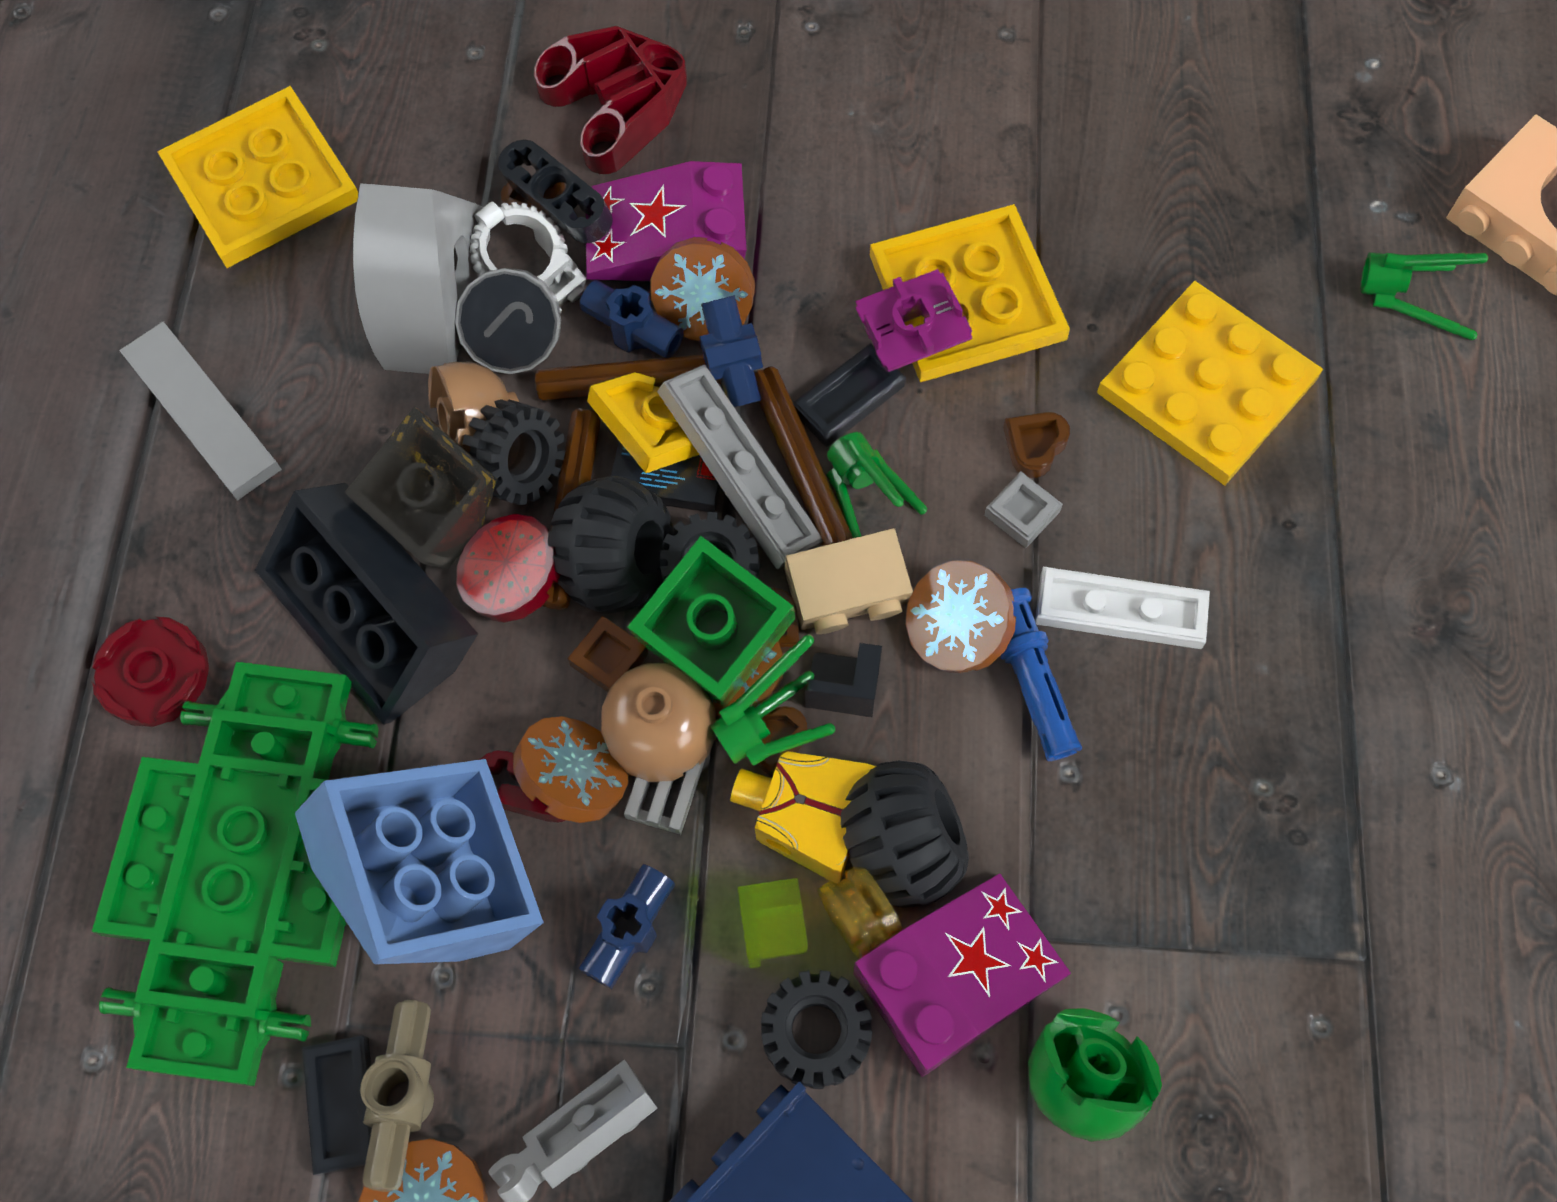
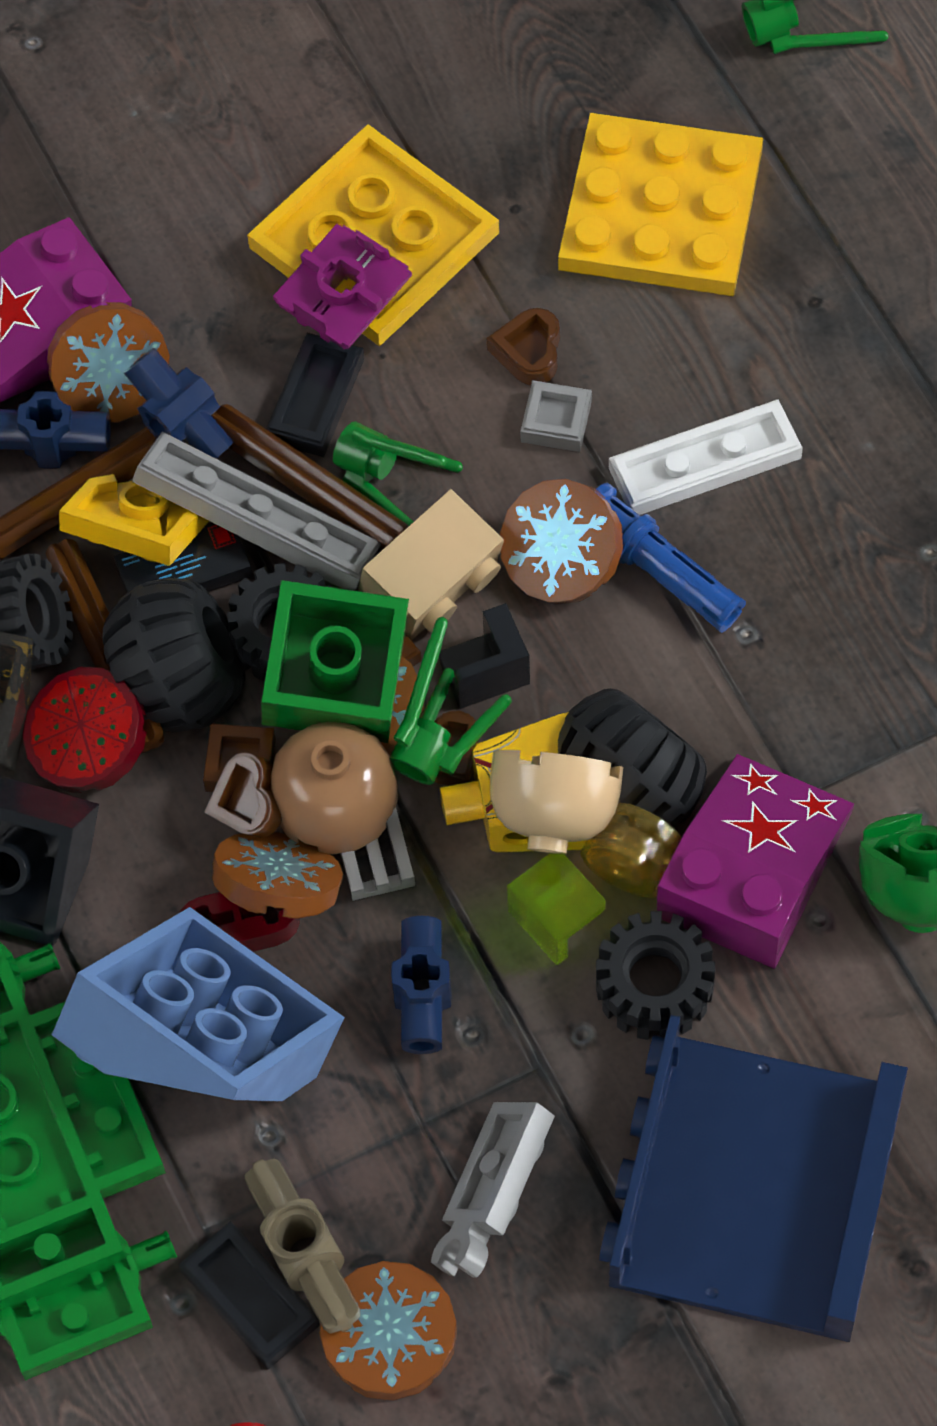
camera: 30 degrees left, 5 degrees down
(583, 692) = (245, 796): none -> reddish brown tile
(808, 840) = (553, 797): none -> tan cylinder

